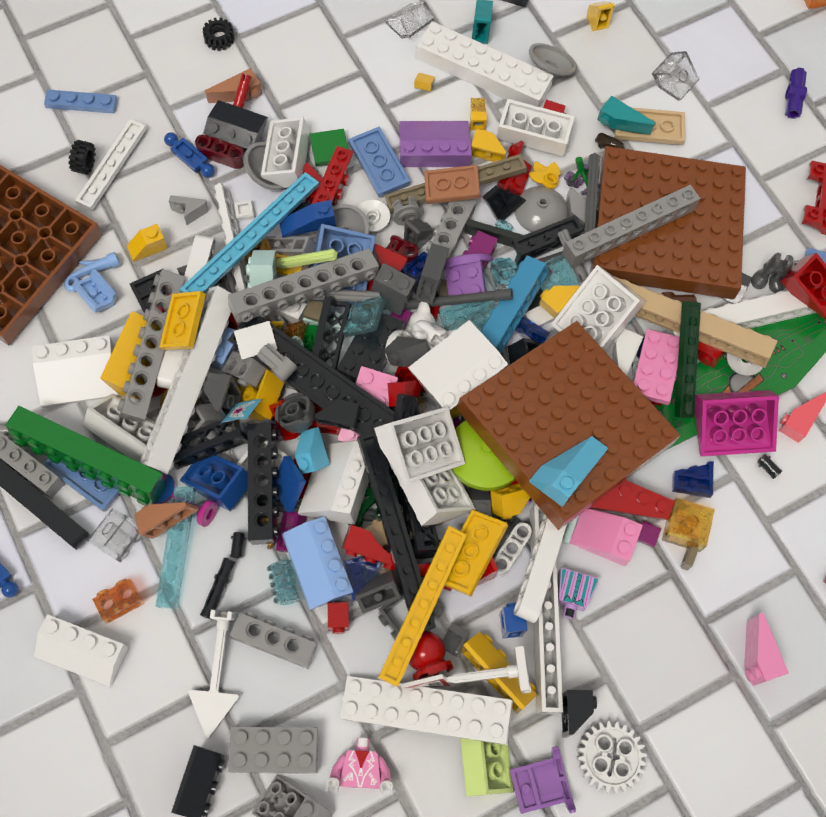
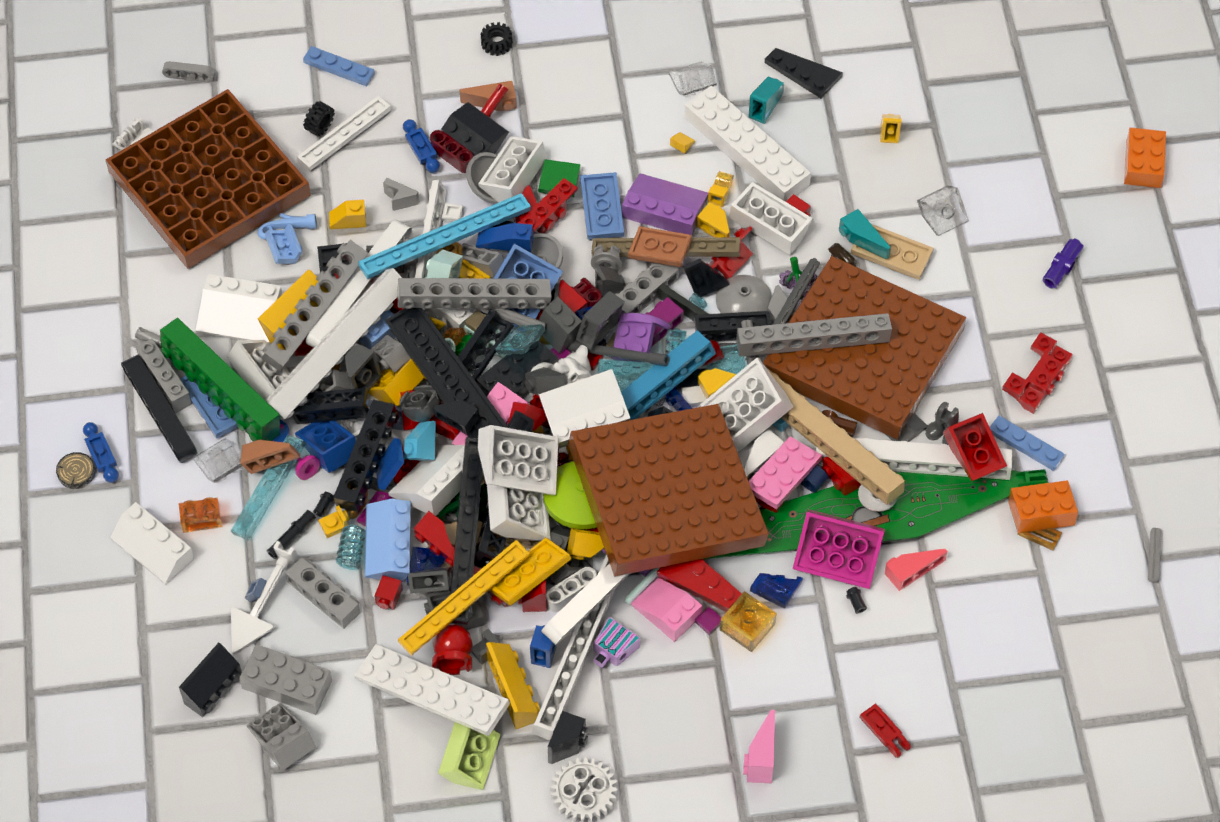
camera: 25 degrees right, 10 degrees down
(182, 321) = (349, 289): yellow plate -> none
(205, 662) = (255, 589): none -> sand blue tile
(241, 410) = (373, 385): medium azure sticker -> none
(253, 338) = (409, 327): white sticker -> none
(255, 560) = (333, 523): none -> yellow bracket
(281, 366) = (421, 355): light grey piece -> none
(305, 259) = (488, 271): yellowish green axle -> none
(360, 770) = (353, 720): bright pink torso -> none
(376, 210) = (575, 248): white dish -> none
(518, 670) = (449, 664): white piece -> none
(542, 784) = (510, 788): medium lavender piece -> none
(546, 175) = (762, 267): yellow plate -> none
(552, 59) = (818, 157): light grey dish -> none
(567, 471) = (640, 523): medium azure wedge -> none
(687, 359) = (811, 472): dark green plate -> none
(689, 558) = (737, 652): dark tan tile -> none

